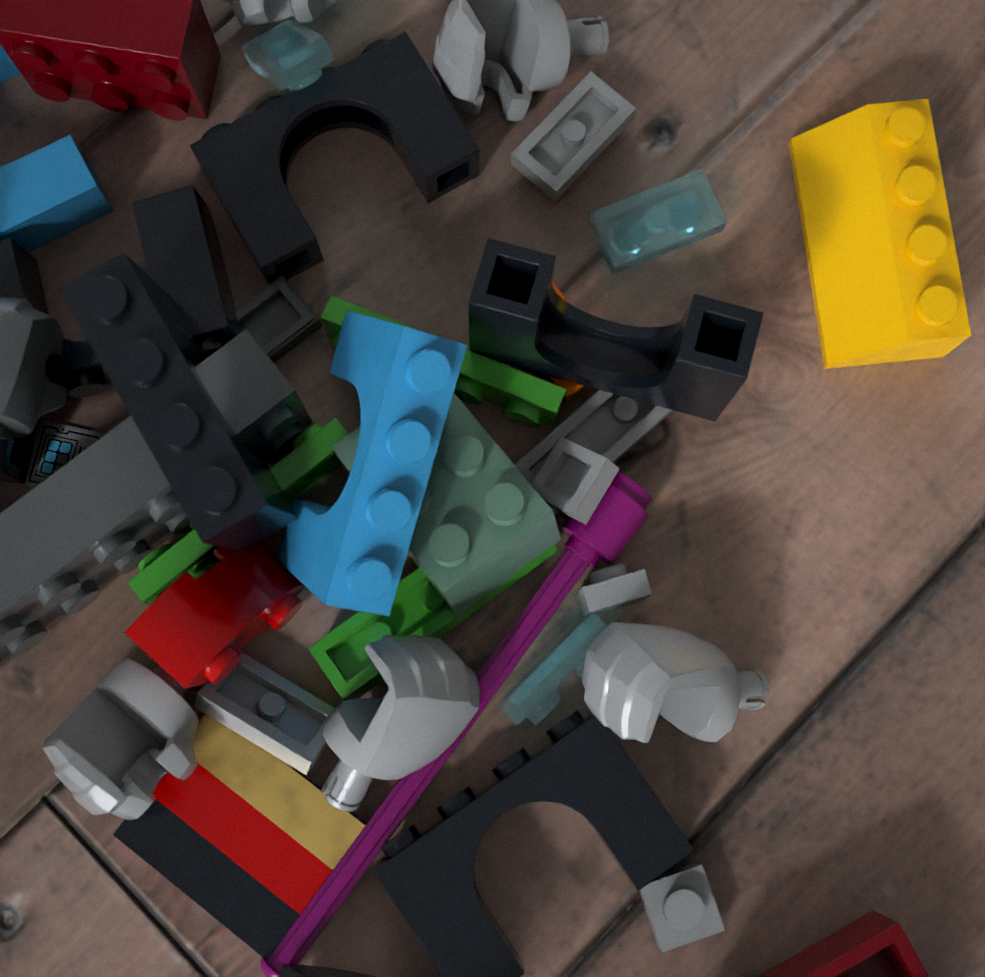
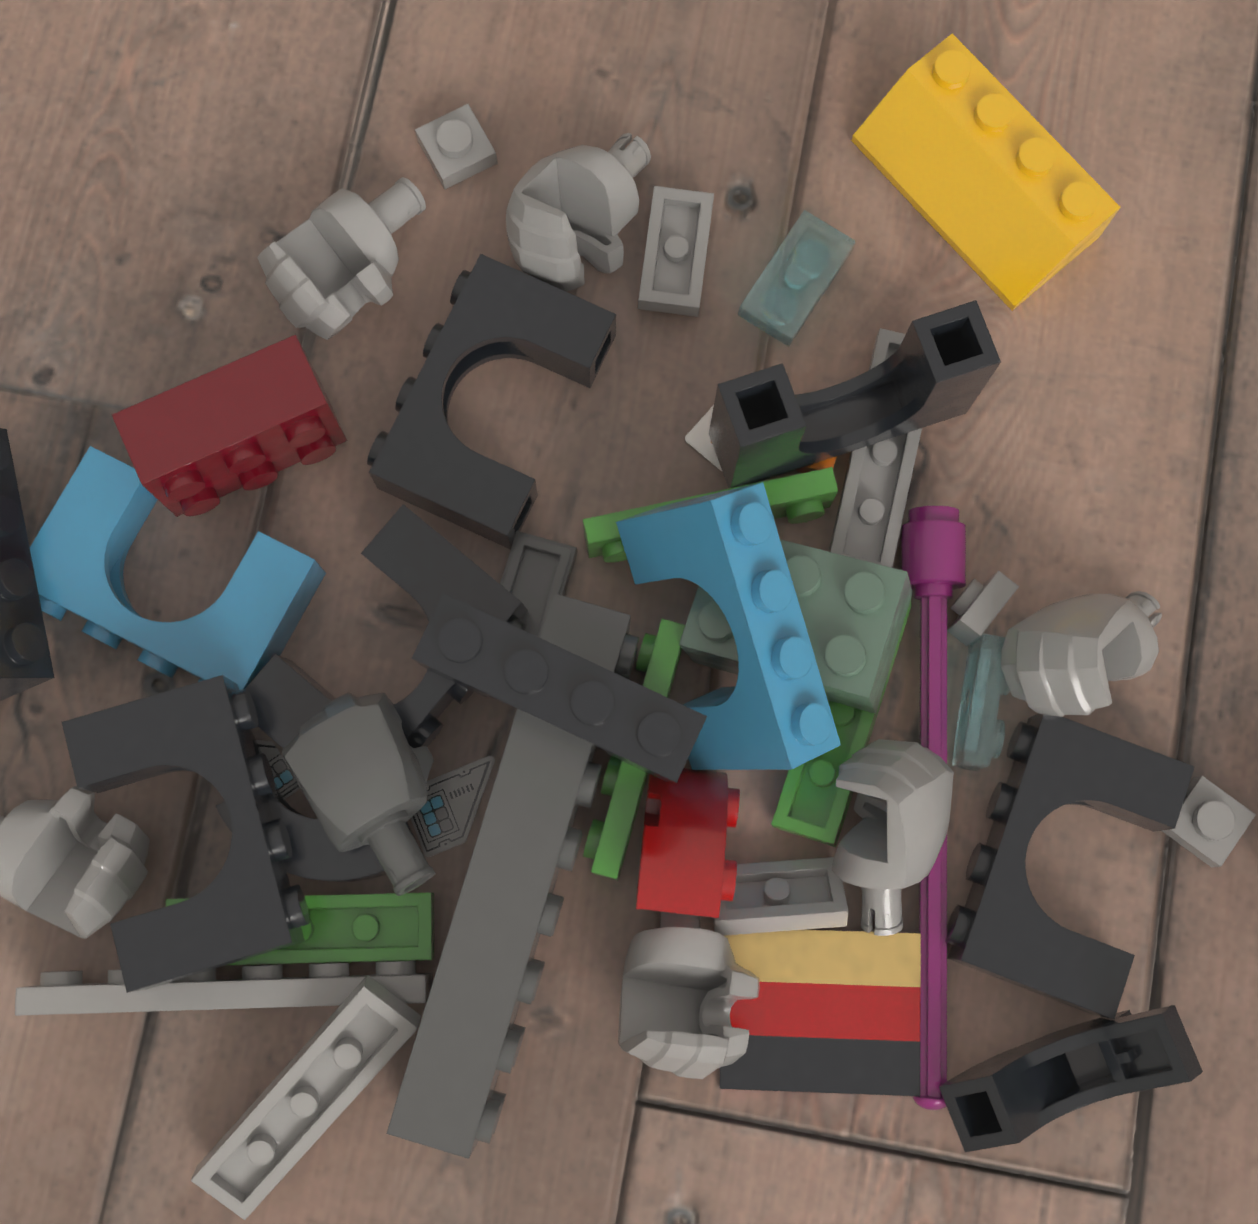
camera: 35 degrees left, 0 degrees up
(289, 55) = (392, 338): clear light blue plate -> none
(574, 479) = (894, 535): light grey plate -> none

